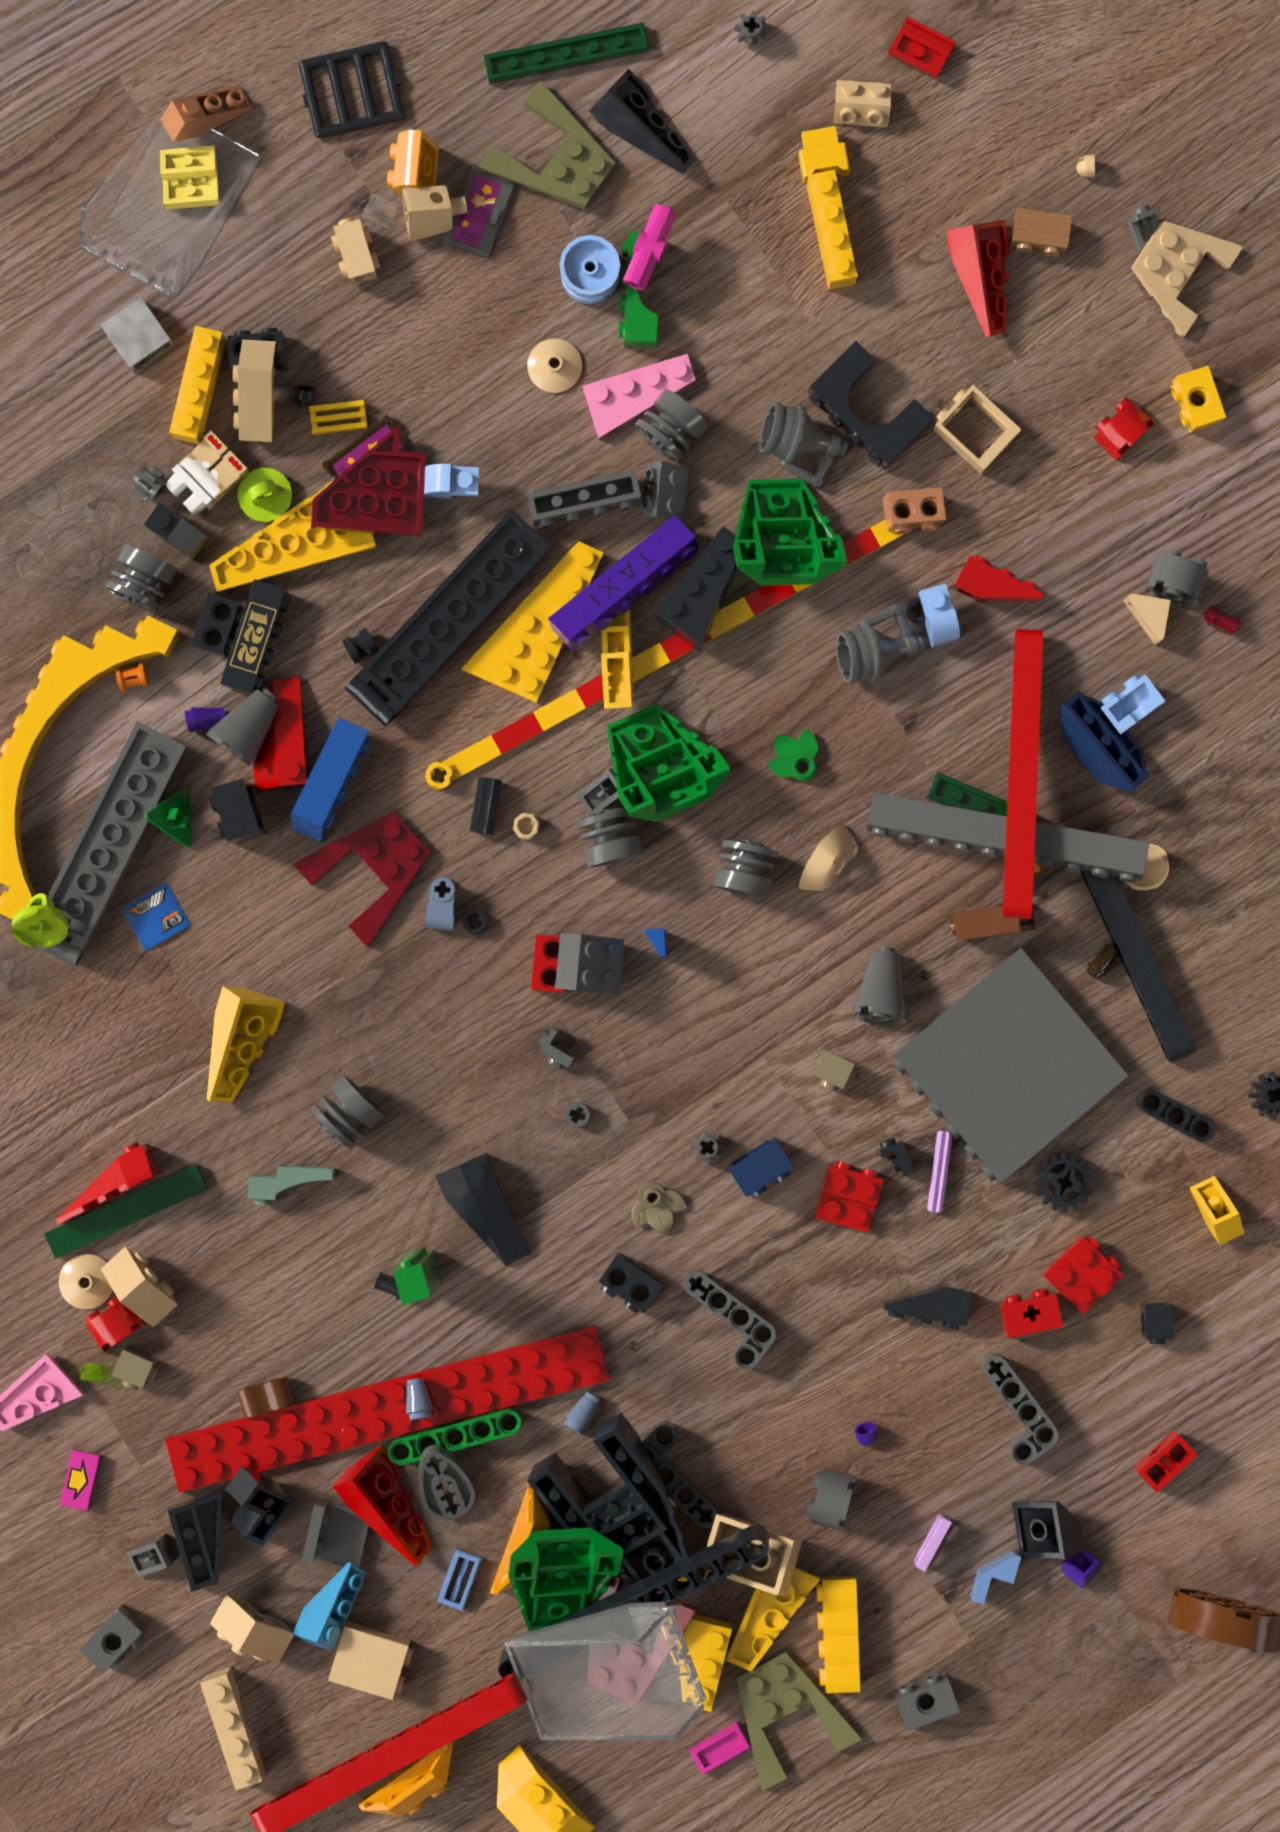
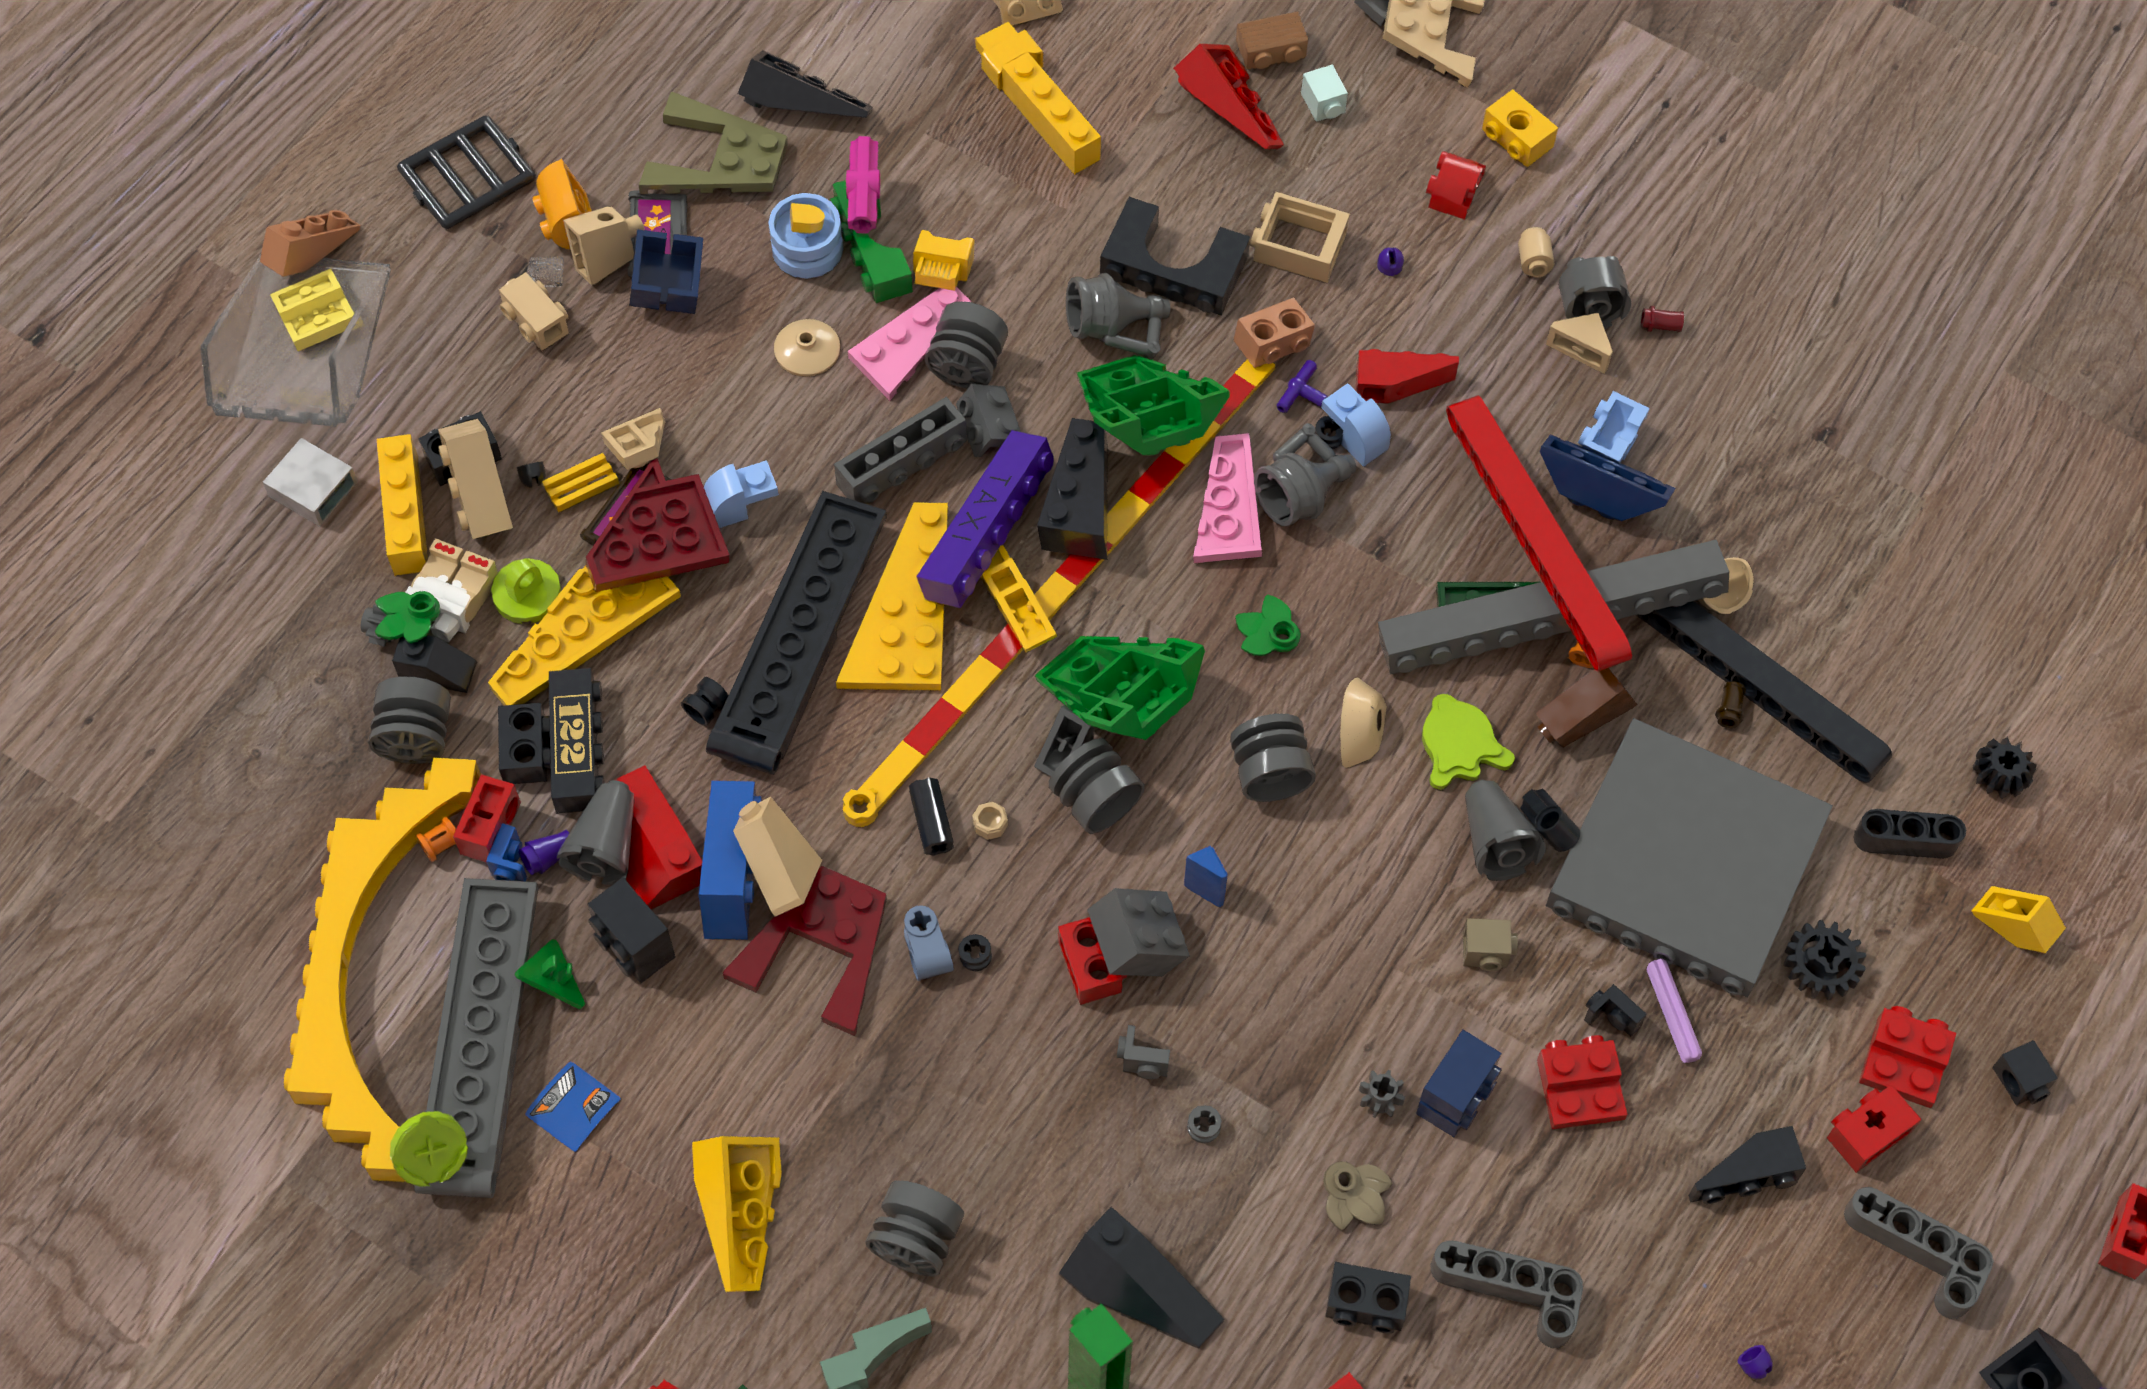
camera: 25 degrees left, 25 degrees down
(161, 492) = (407, 615): none -> green plate
(169, 679) = (489, 807): none -> red brick
(174, 707) = (505, 854): none -> blue bracket
(359, 801) = (776, 854): none -> tan slope
(392, 401) = (636, 440): none -> tan wing
(468, 261) = (666, 277): none -> dark blue piece
(566, 53) = (688, 61): dark green tile -> none
(591, 263) = (806, 218): none -> yellow tile
(686, 336) = (942, 261): none -> yellow piece
(812, 645) = (1230, 507): none -> bright pink wing
(891, 904) = (1460, 740): none -> lime tile
(912, 561) = (1298, 386): none -> dark purple piece
(921, 999) = (1550, 820): none -> black piece
(1032, 474) = (1384, 261): none -> dark purple hinge
(1059, 301) = (1324, 93): none -> light aqua brick
(1153, 519) = (1536, 252): none -> tan brick

